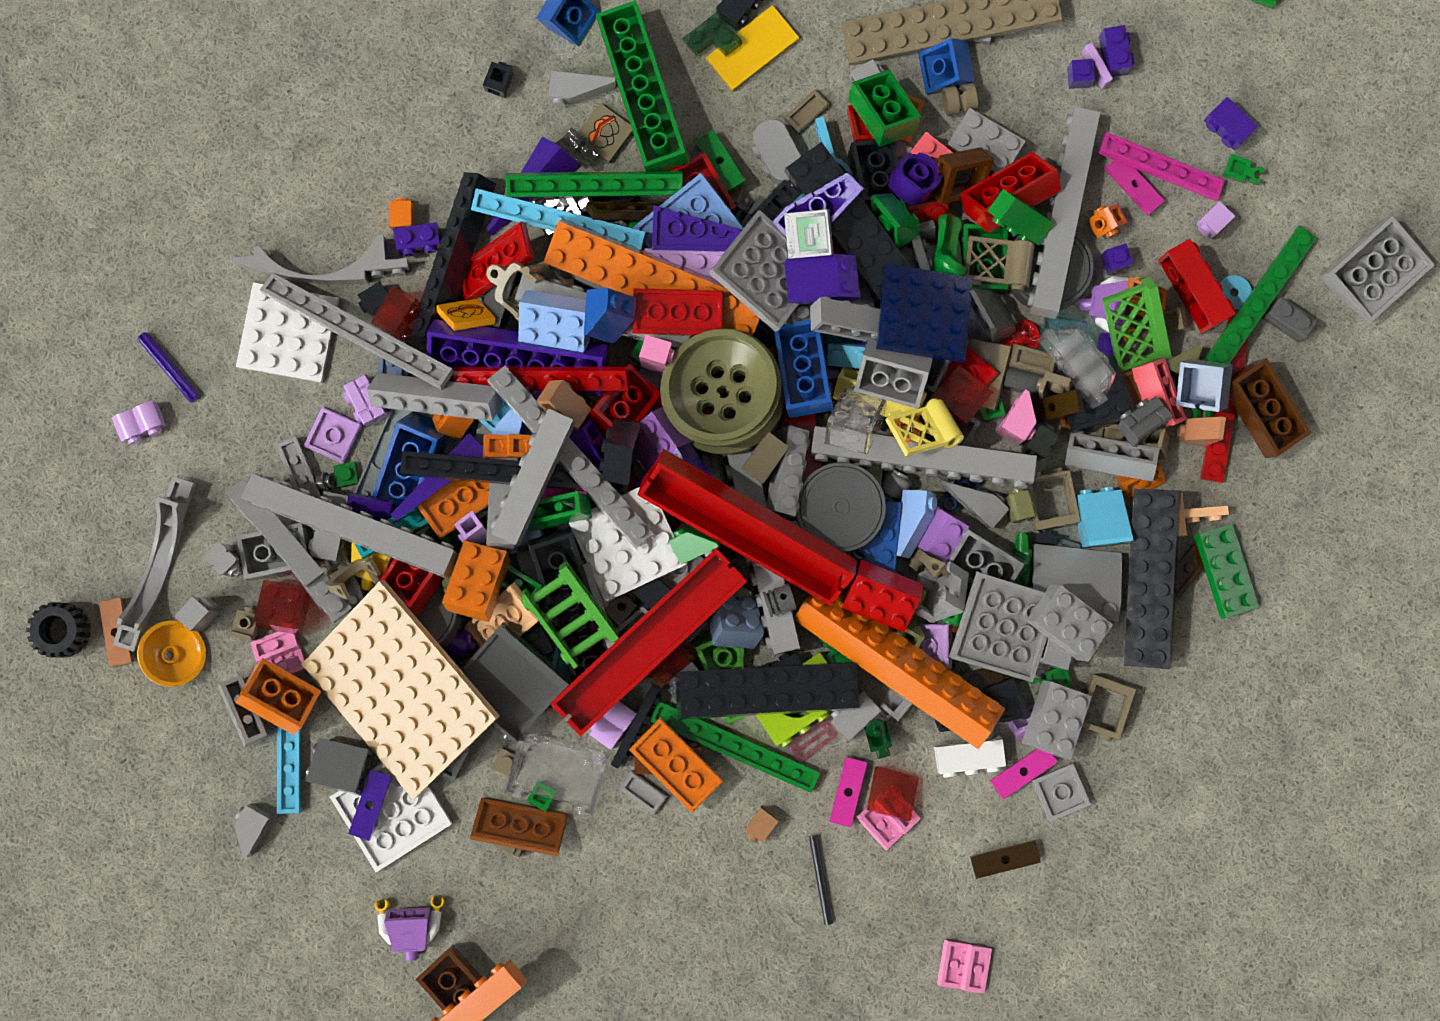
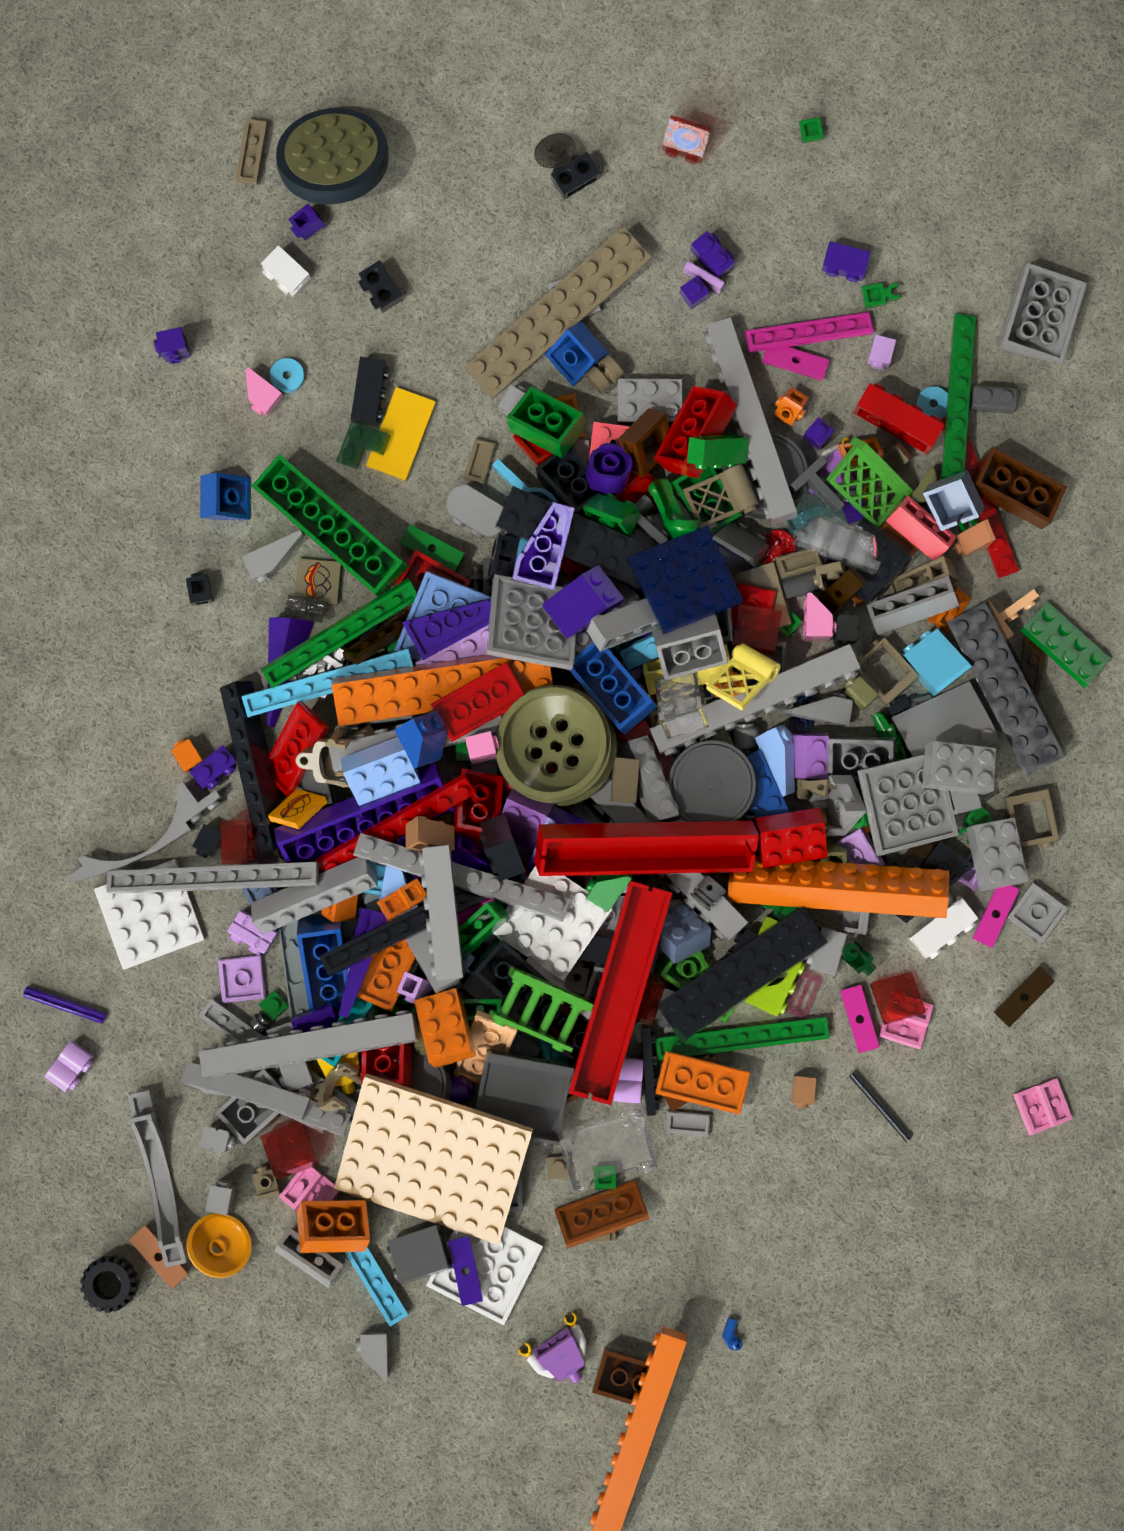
camera: 30 degrees left, 0 degrees up
(567, 1004) = (729, 1335): none -> blue arm
(808, 233) = (549, 571): tile -> none
(1091, 302) = (818, 485): none -> dark grey bracket
(1144, 421) = (922, 560): dark grey brick -> none

